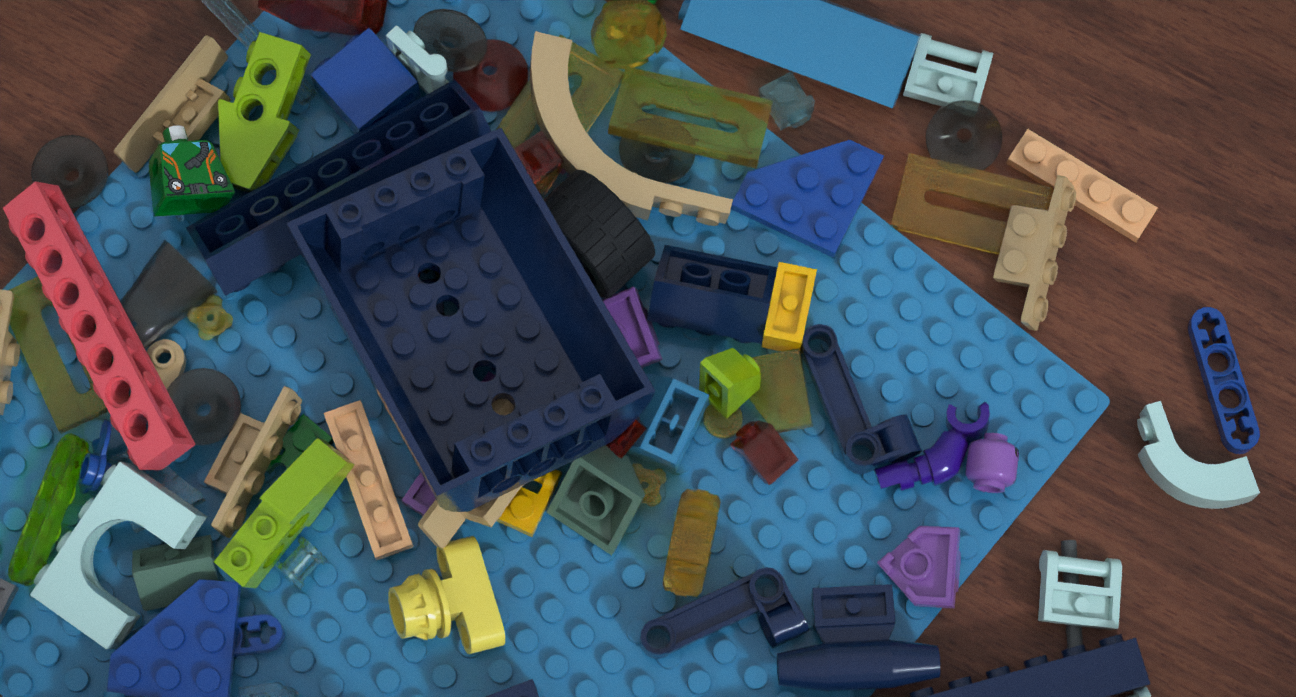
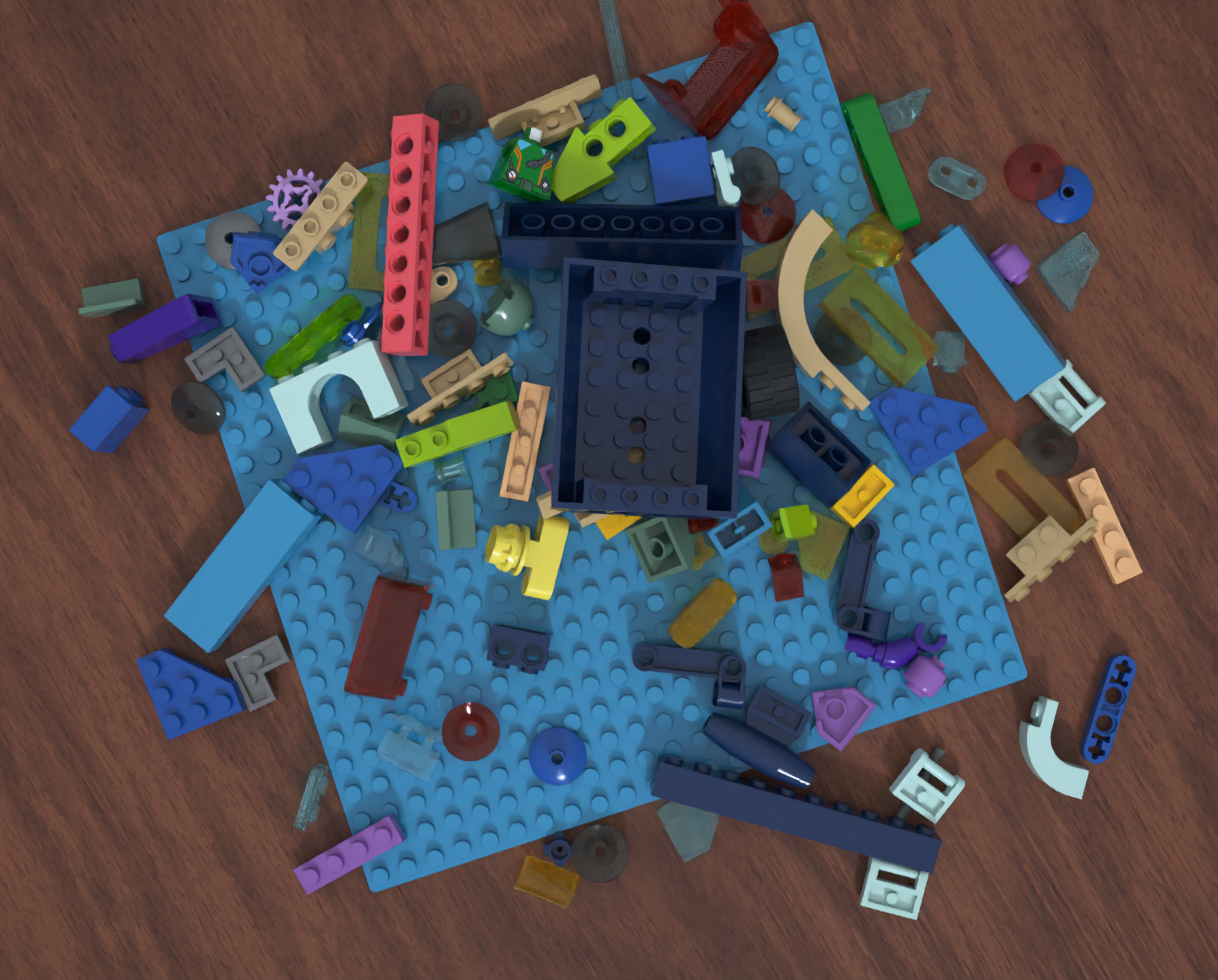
camera: 30 degrees right, 15 degrees up
(260, 341) = (508, 309): none -> sand green cylinder
(341, 618) = (456, 519): none -> sand green panel

